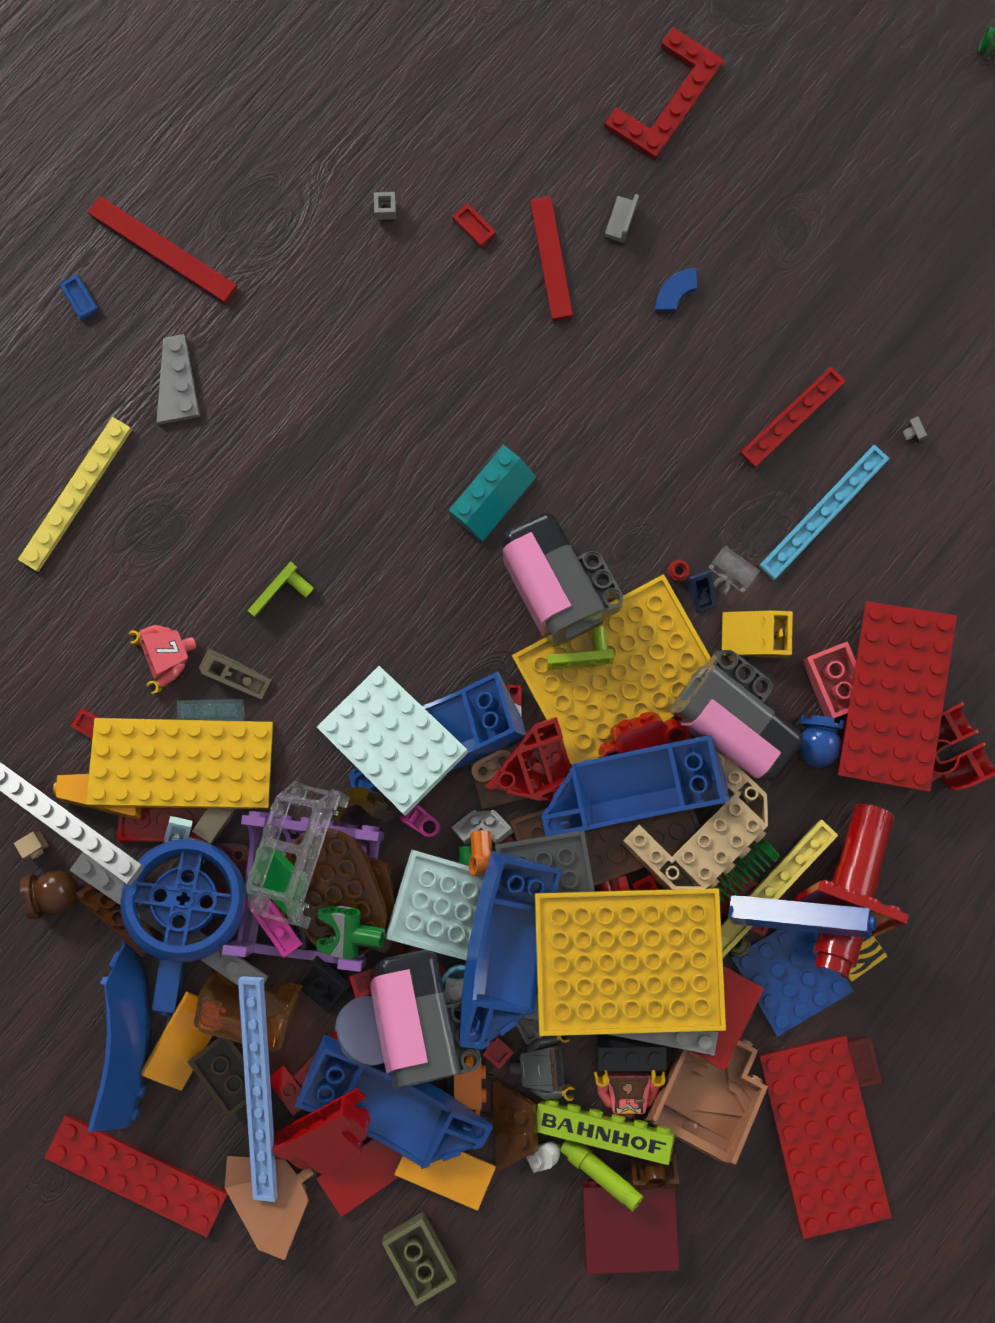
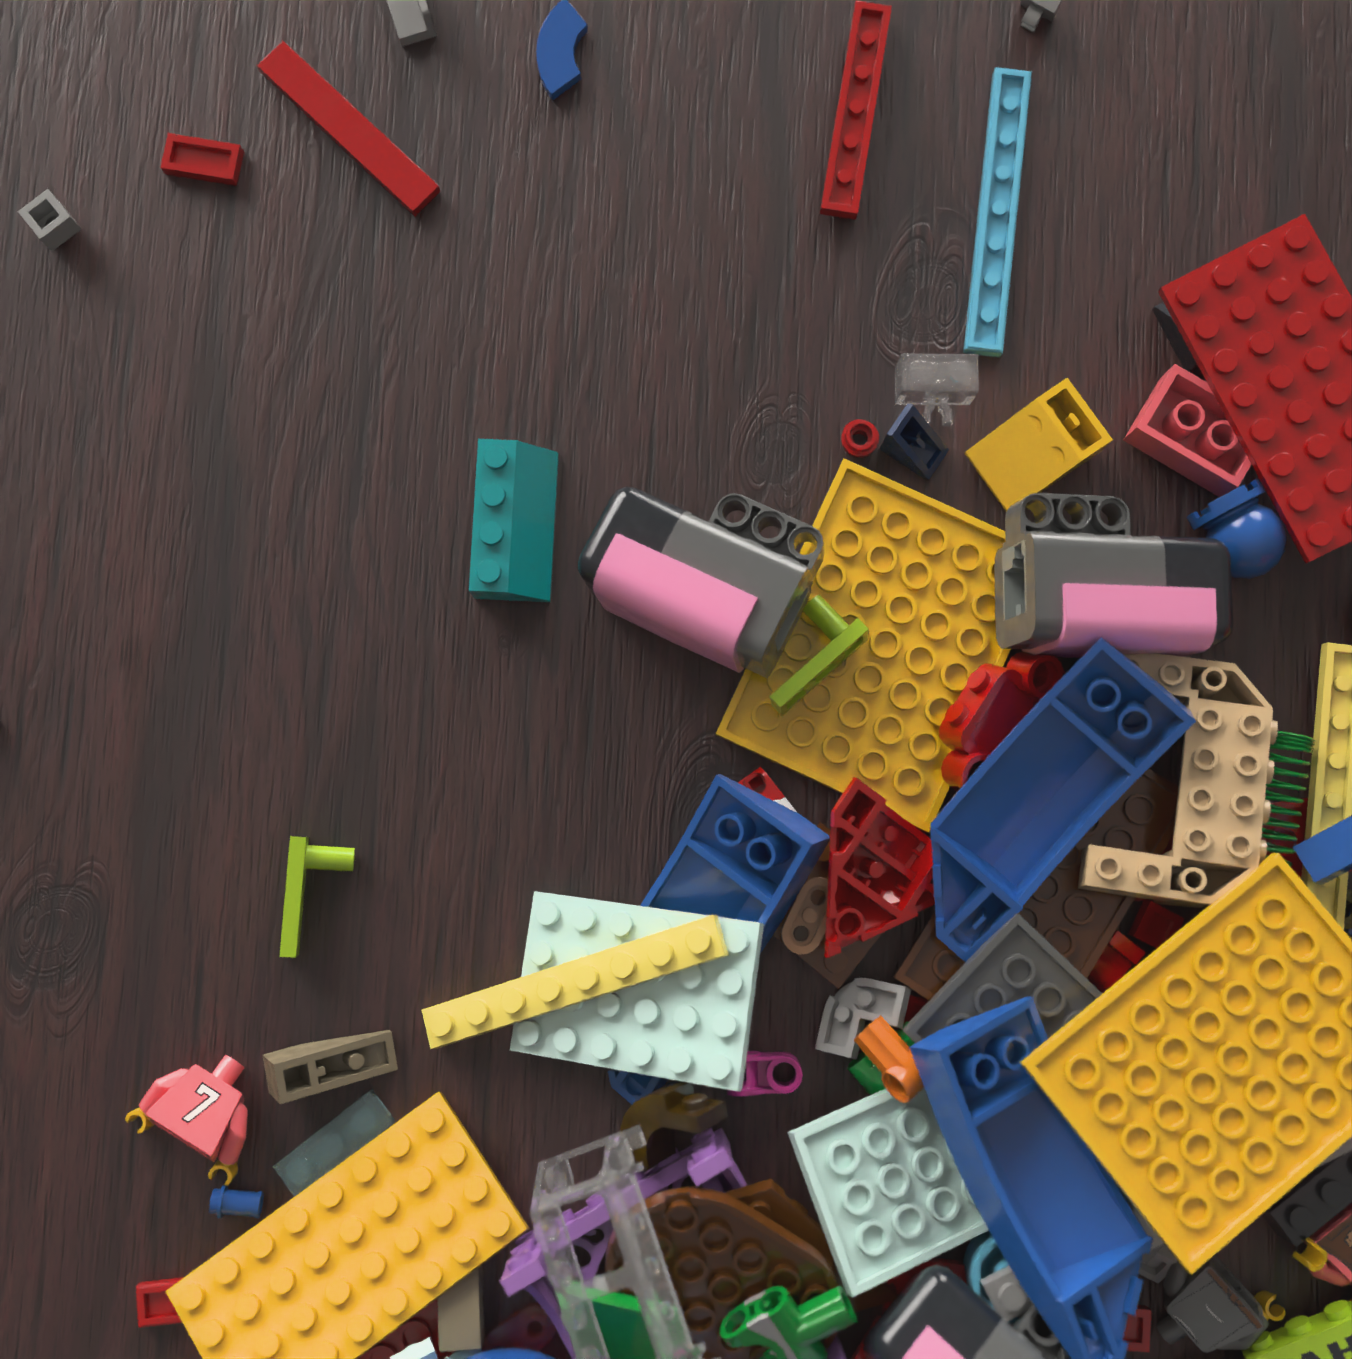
camera: 35 degrees left, 0 degrees up
(150, 704) = (236, 1202): none -> blue pin
(367, 716) = (575, 981): none -> light yellow plate

